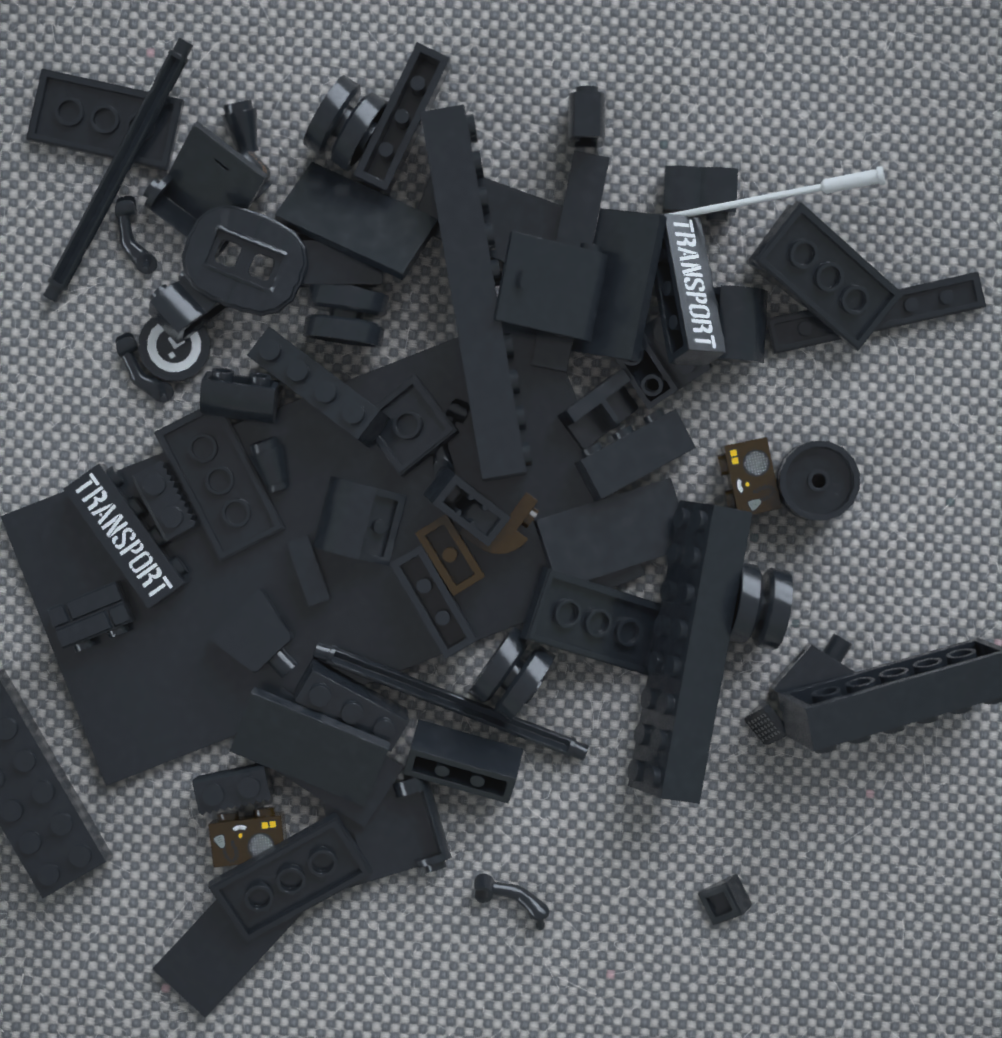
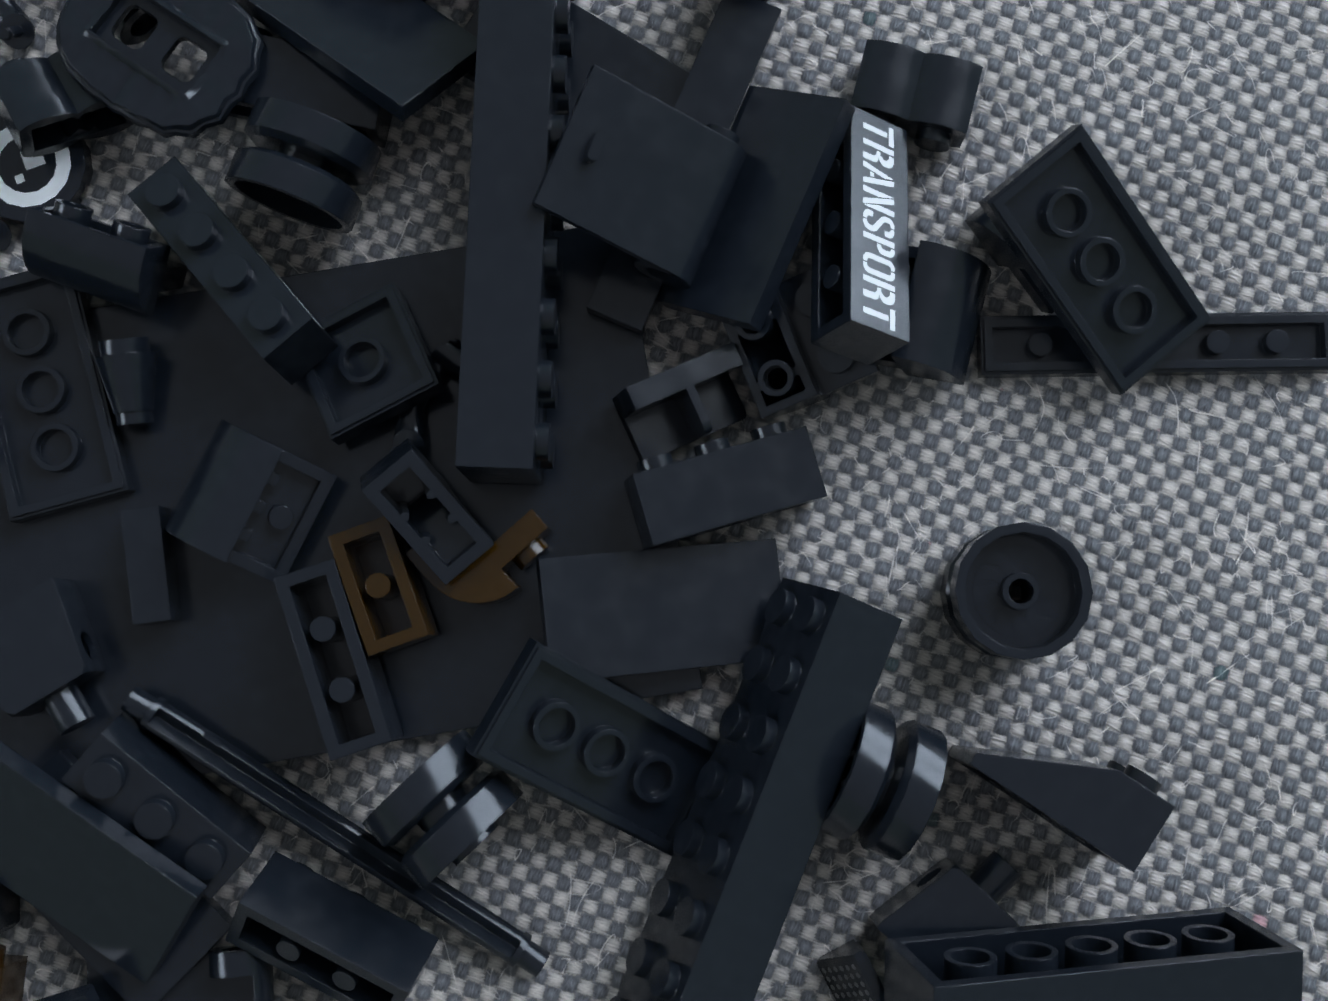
camera: 10 degrees right, 5 degrees down
(749, 476) = (906, 561): dark brown brick -> none
(828, 186) = (1128, 110): white piece -> none
(881, 593) = (1100, 806): none -> black slope

